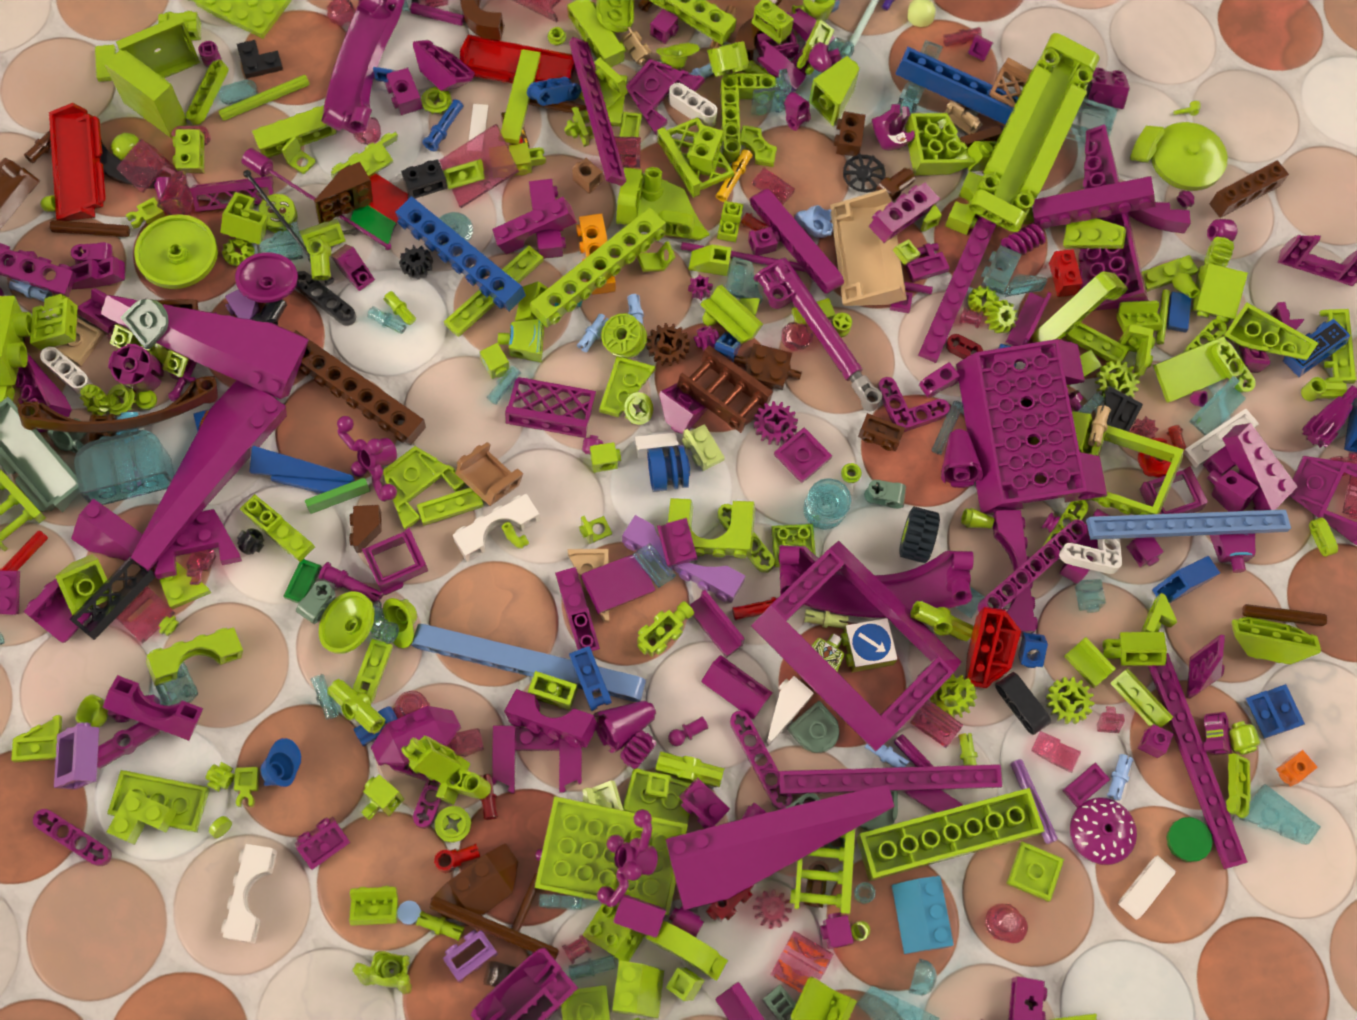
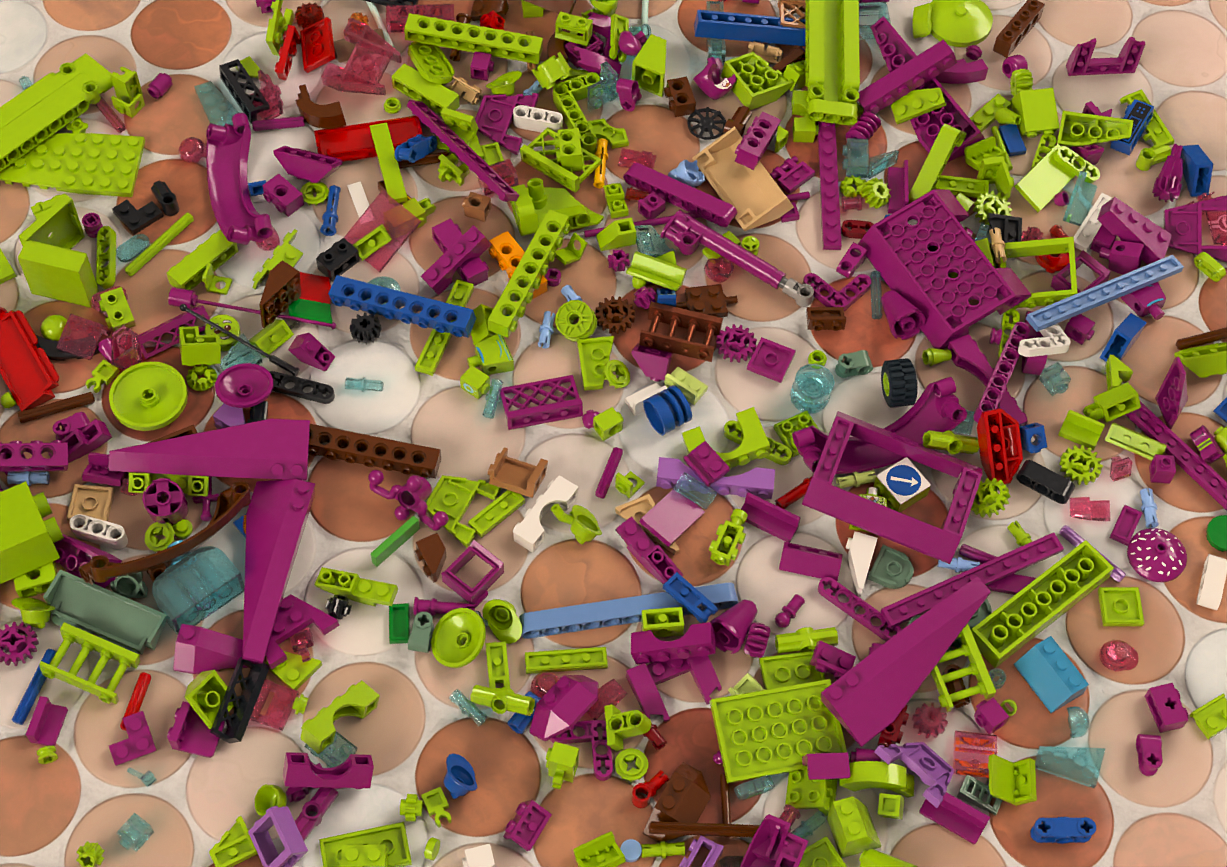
camera: 20 degrees left, 10 degrees down
(54, 323) = (68, 494): lime piece -> none
(100, 404) = (145, 542): lime gear -> none
(146, 321) = (158, 457): tile -> none
(291, 52) = (165, 198): none -> black piece
(296, 472) = (349, 535): blue wedge -> none
(319, 260) = (282, 355): lime piece -> none
(384, 630) = (495, 631): clear light blue wheel -> none
(399, 307) = (370, 370): lime axle -> none
(431, 758) = (592, 713): lime brick -> none
(443, 687) = (566, 660): none -> lime tile
(529, 554) = (584, 525): none -> lime piece
(581, 509) = (609, 472): none -> magenta axle
(626, 285) = (553, 272): none -> magenta bush
(630, 859) = (800, 720): magenta wheel -> none
(657, 785) = (787, 662): lime tile -> none
(742, 956) = (925, 763): none -> medium lavender wing
(906, 252) = (775, 170): lime tile -> none
(936, 723) = (986, 523): clear pink plate -> none
(1065, 273) = (909, 141): red brick -> none

